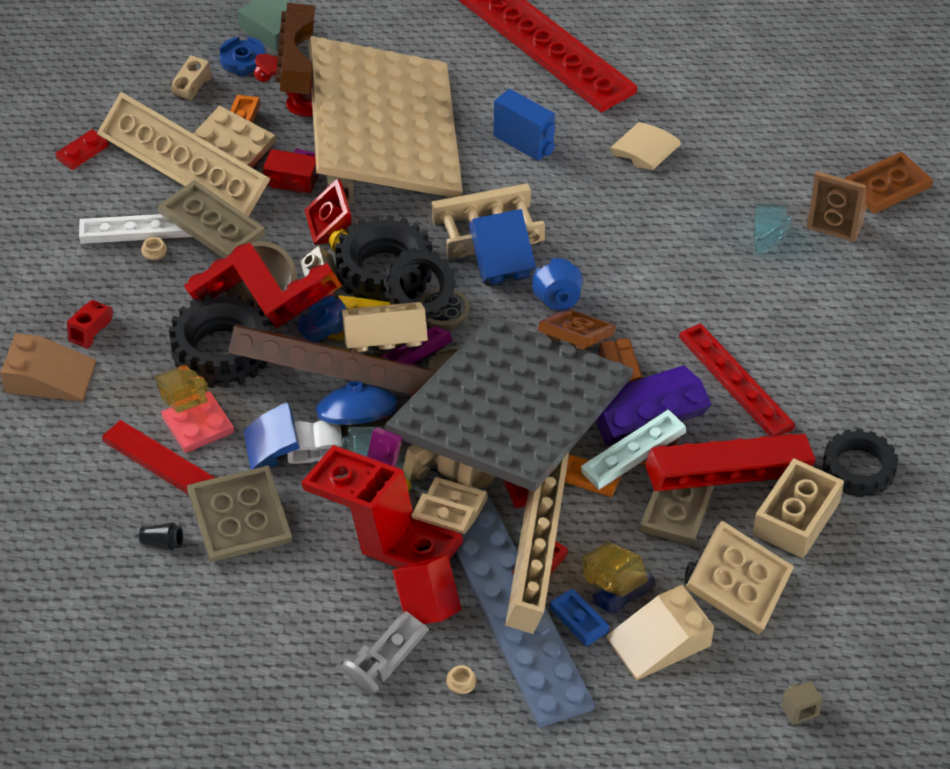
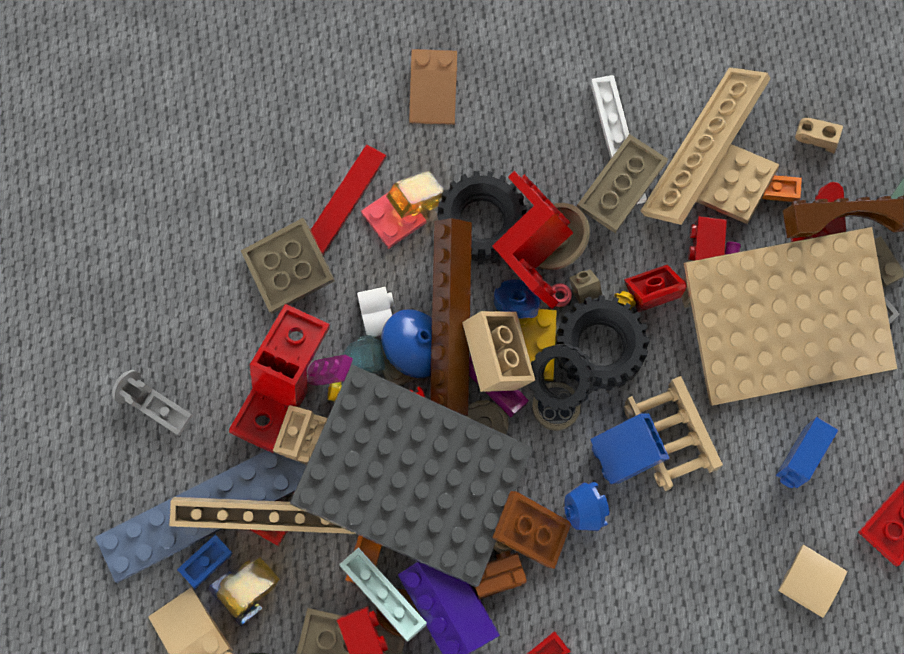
camera: 80 degrees right, 25 degrees up
(81, 149) = (709, 59): red plate -> none
(88, 323) = (493, 108): red leg -> none
(153, 248) = (591, 144): tan plate -> none
(163, 536) = (263, 212): black cone -> none
(244, 64) = (864, 186): blue plate -> none
(271, 437) = (373, 278): slope -> none
(428, 589) = (212, 431): red slope -> none
(461, 680) = (136, 469): tan plate -> none

